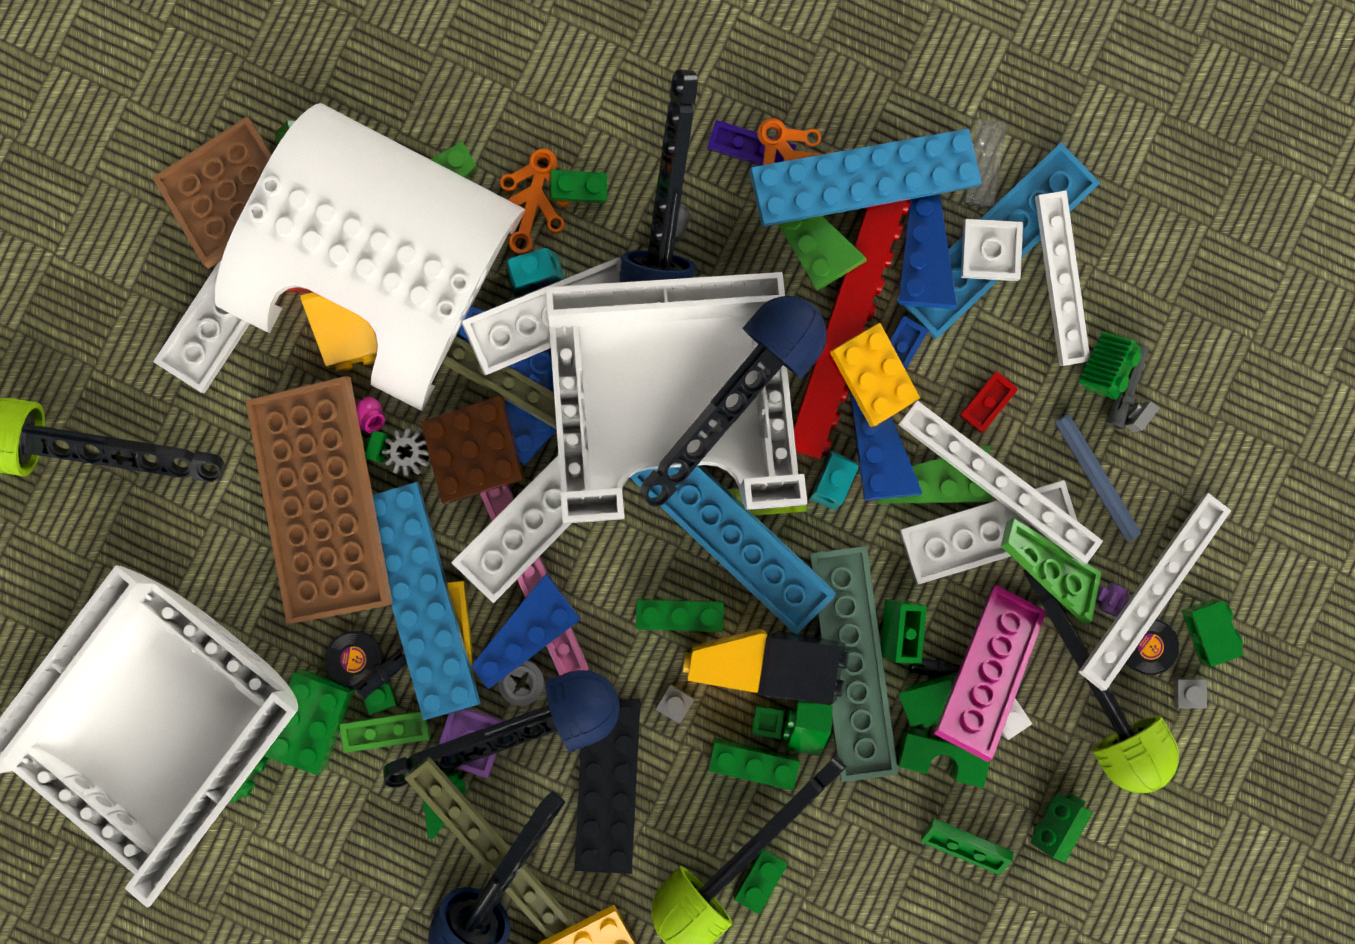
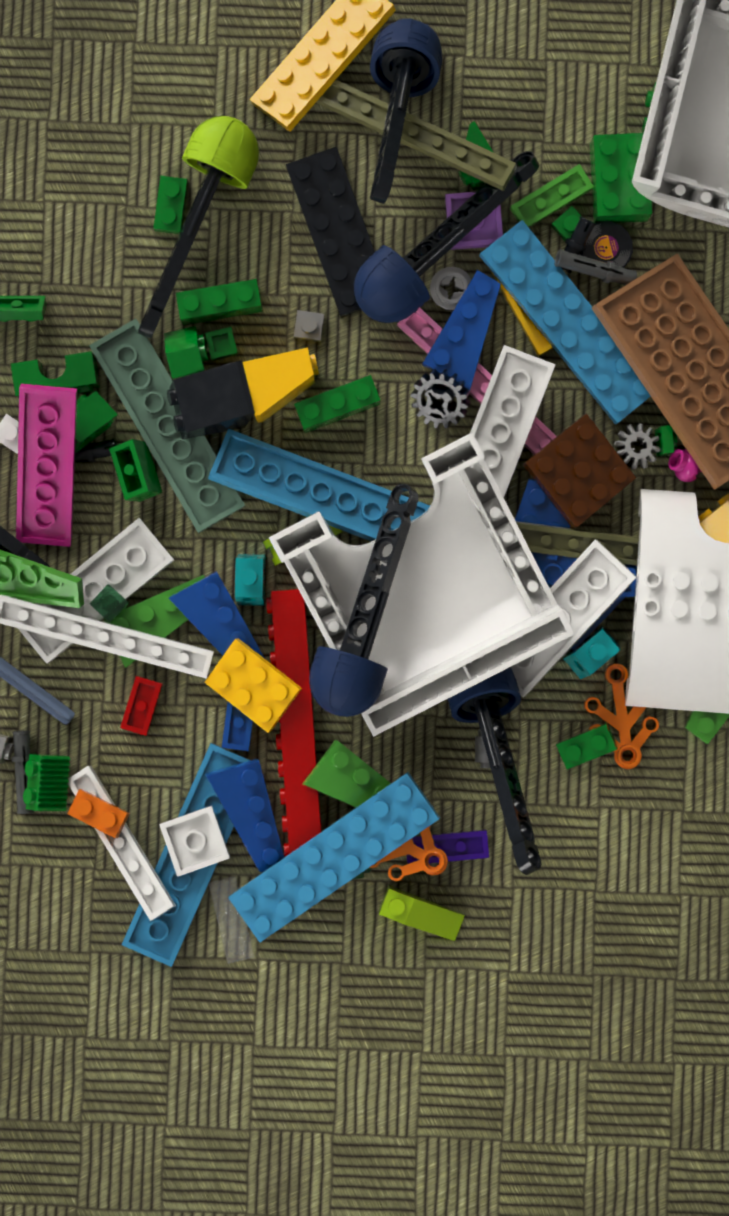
camera: 155 degrees right, 0 degrees up
(362, 634) = (592, 267): none -> dark grey pin
(577, 579) = (439, 387): none -> black gear
(804, 96) = (420, 913): none -> lime slope
(981, 512) = (109, 603): none -> clear green plate
(1073, 314) = (98, 813): none -> orange plate

